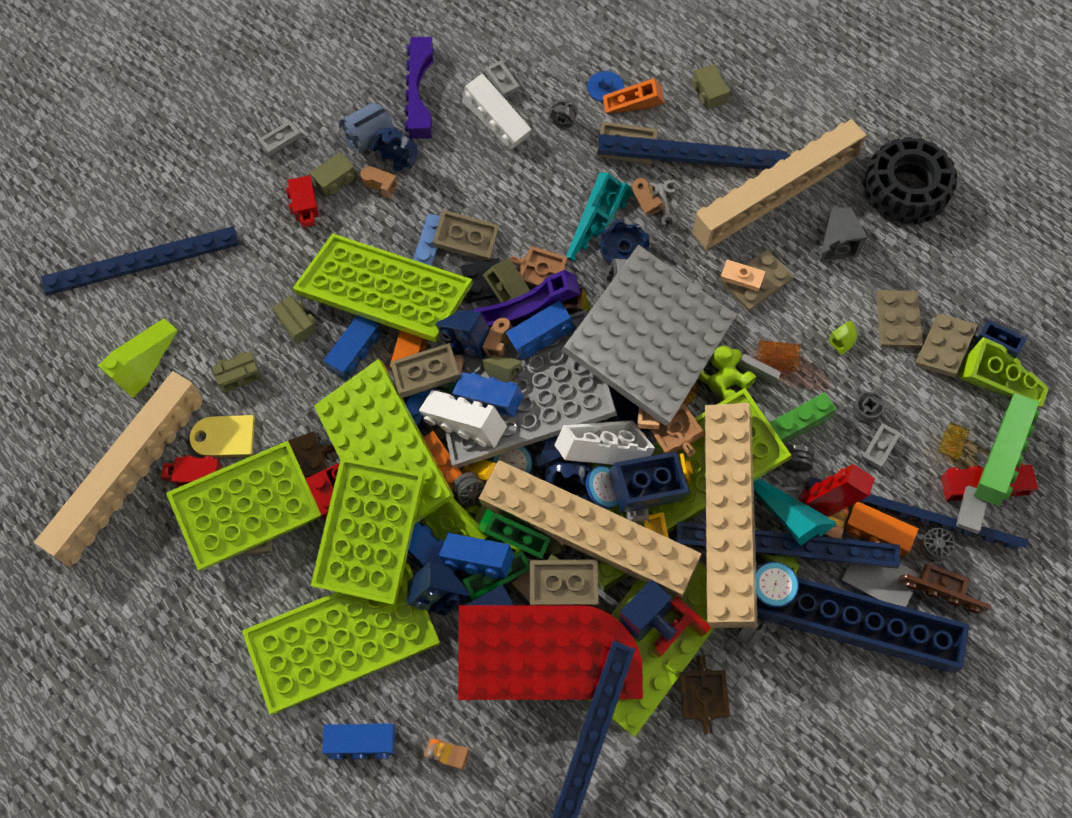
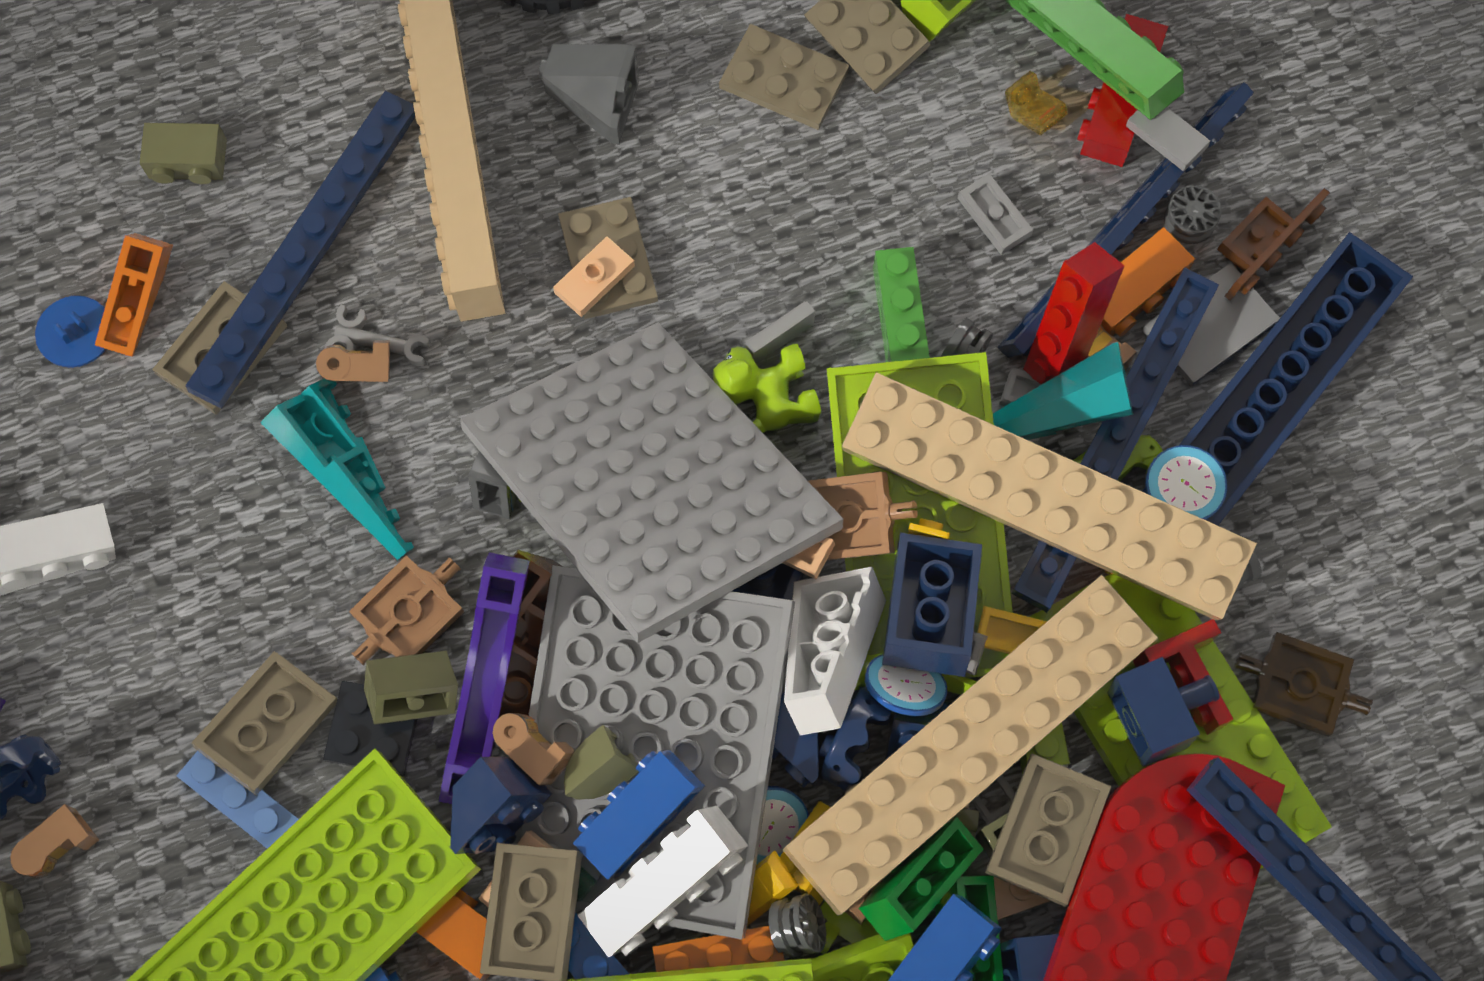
camera: 70 degrees left, 5 degrees up
(541, 330) = (560, 663): blue brick -> none
(562, 114) = (97, 432): dark grey wheel -> none
(620, 234) = (409, 433): dark blue plate -> none
(778, 355) = (768, 291): clear orange brick -> none
(844, 337) = (780, 174): lime brick -> none
(868, 407) = (921, 198): dark grey wheel -> none

